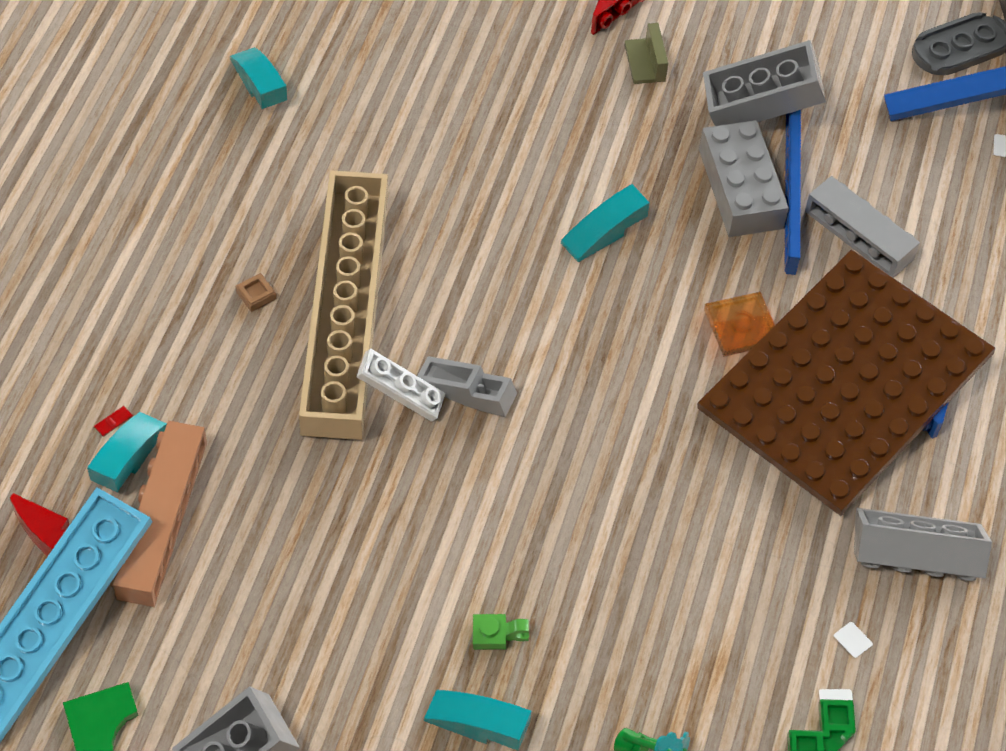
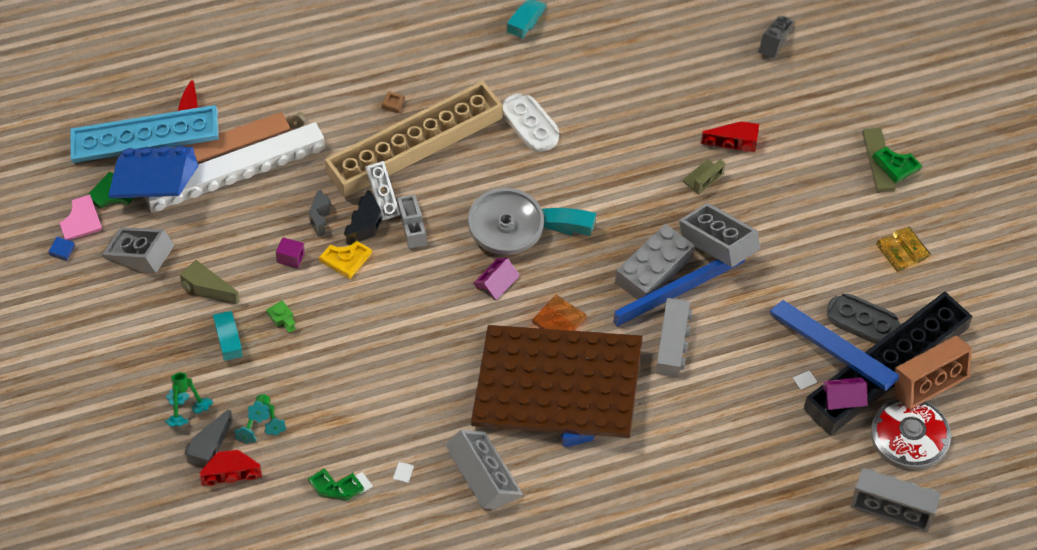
camera: 55 degrees right, 0 degrees up
(113, 421) = (272, 95): red piece -> none
(125, 451) = (255, 107): teal slope -> none
(136, 642) = (152, 172): none -> blue slope
(189, 413) = (296, 121): none -> dark tan piece
(198, 544) = (246, 163): none -> white brick
(367, 693) = (206, 284): none -> olive slope
(373, 493) = (318, 210): none -> dark grey slope
(405, 555) = (290, 252): none -> magenta panel
(421, 433) = (364, 220): none -> black slope
(422, 170) = (530, 122): none -> white tile
(462, 499) = (346, 259): none -> yellow tile
(559, 284) = (506, 221): none -> light grey dish
(629, 348) = (497, 277): none -> panel

